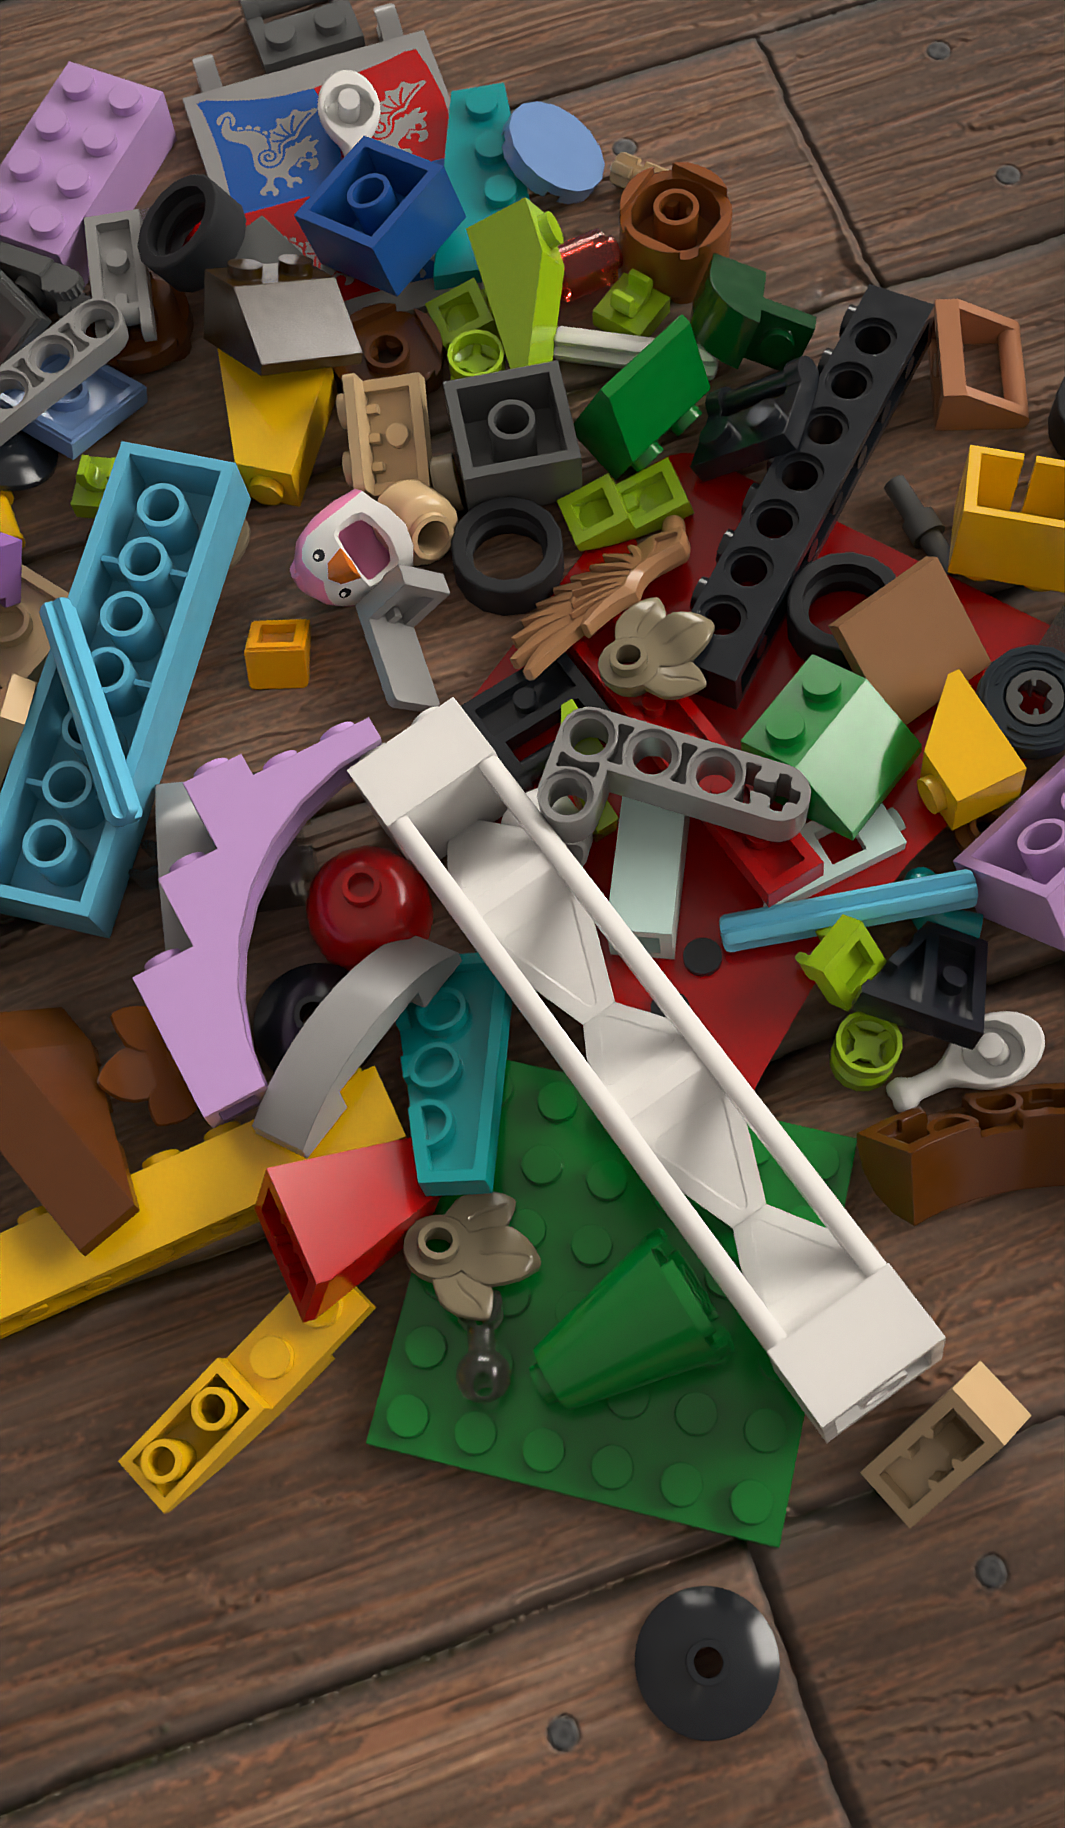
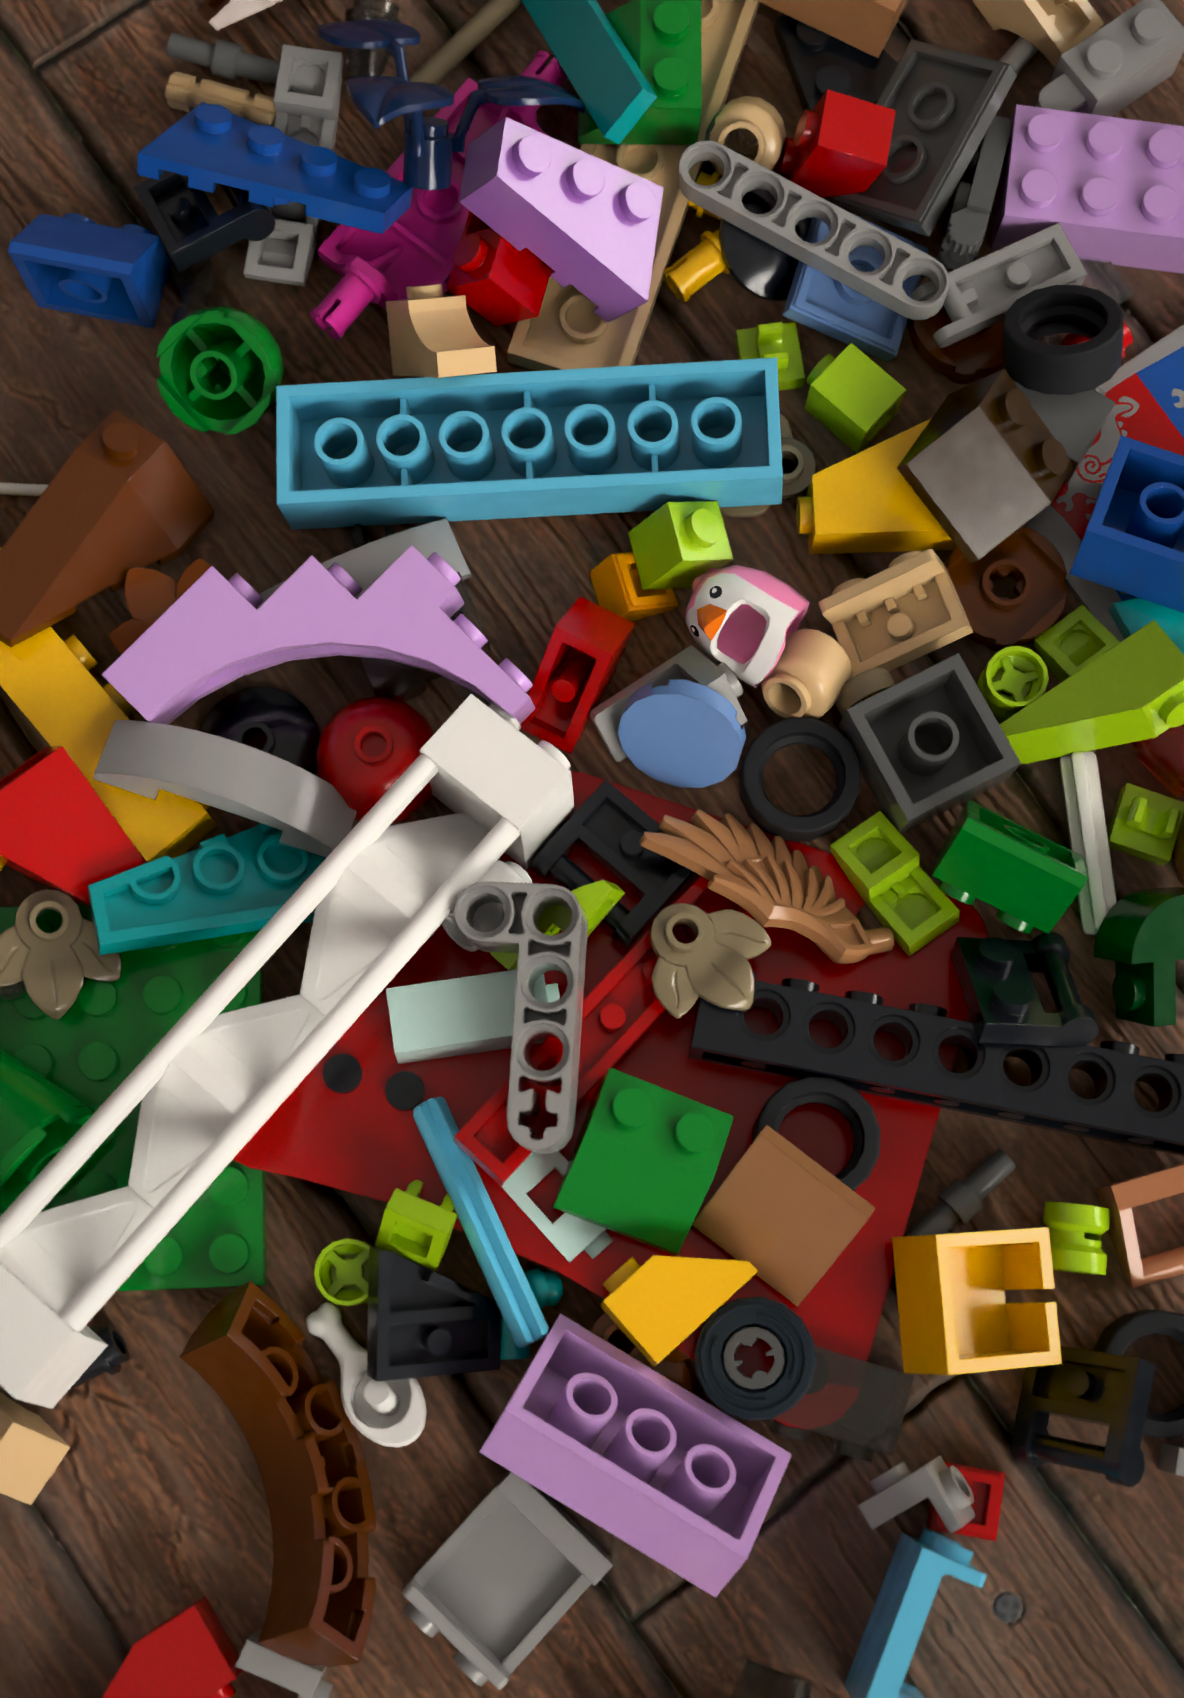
camera: 65 degrees right, 10 degrees up
(90, 712) = (472, 432): medium azure axle -> none
(173, 419) = (853, 397): none -> lime brick
(258, 589) = (679, 544): none -> lime brick
(334, 690) = (575, 672): none -> red slope
(437, 628) = (681, 734): none -> medium blue tile
(968, 431) = (1076, 1237): none -> lime wheel

